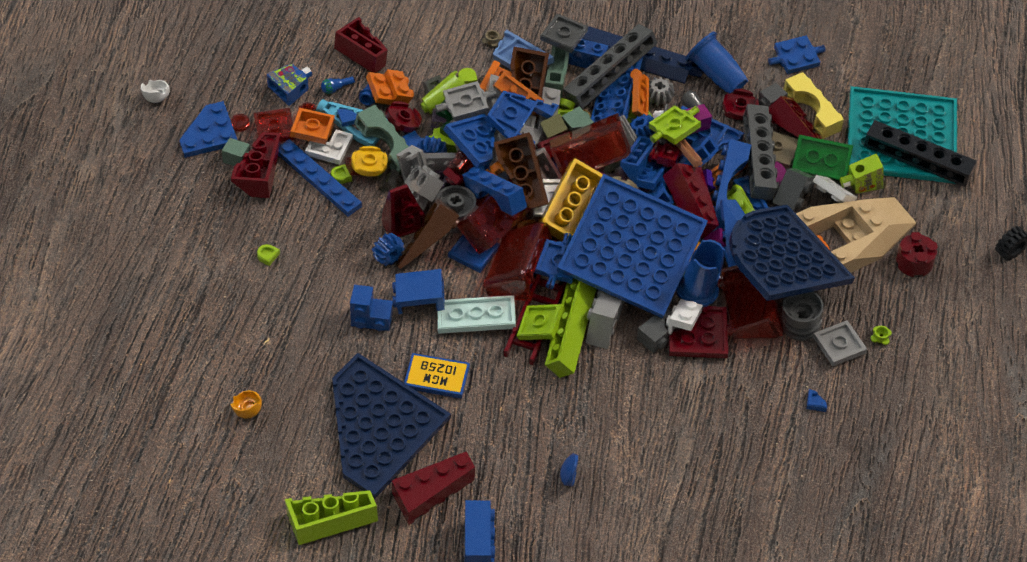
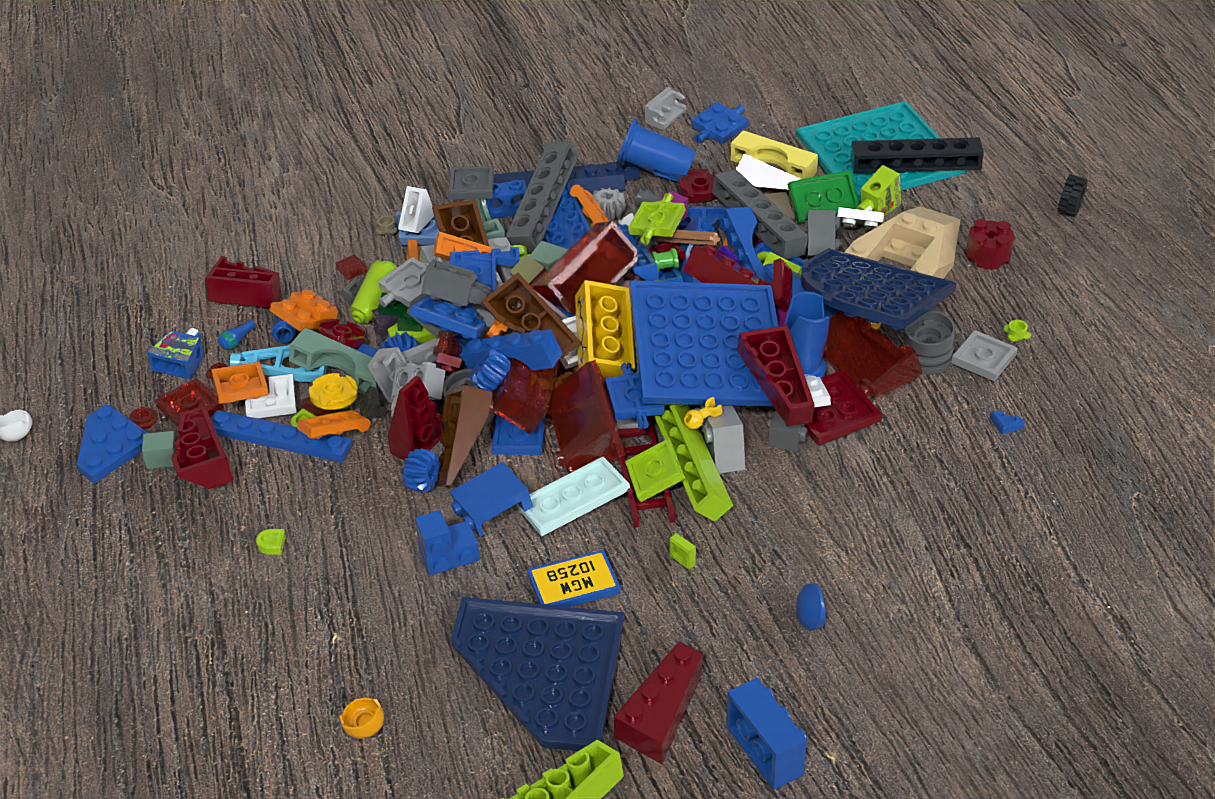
camera: 25 degrees left, 10 degrees down
(346, 117) = (275, 358): blue tile -> none
(354, 186) = (333, 424): none -> orange plate
(446, 62) = (351, 267): none -> clear red tile
(471, 197) = (490, 370): none -> blue gear
(486, 119) = (453, 284): none -> dark grey hinge
(513, 37) = (416, 210): none -> white slope
(518, 389) = (682, 551): none -> lime tile
(585, 298) = (694, 419): none -> yellow arm
(655, 162) = (666, 259): none -> bright green bush
(664, 285) = (778, 371): none -> dark red wedge
(720, 222) = (782, 284): none -> dark red plate
(763, 24) = (664, 109): none -> light grey hinge
(771, 94) = (727, 161): dark grey brick -> none

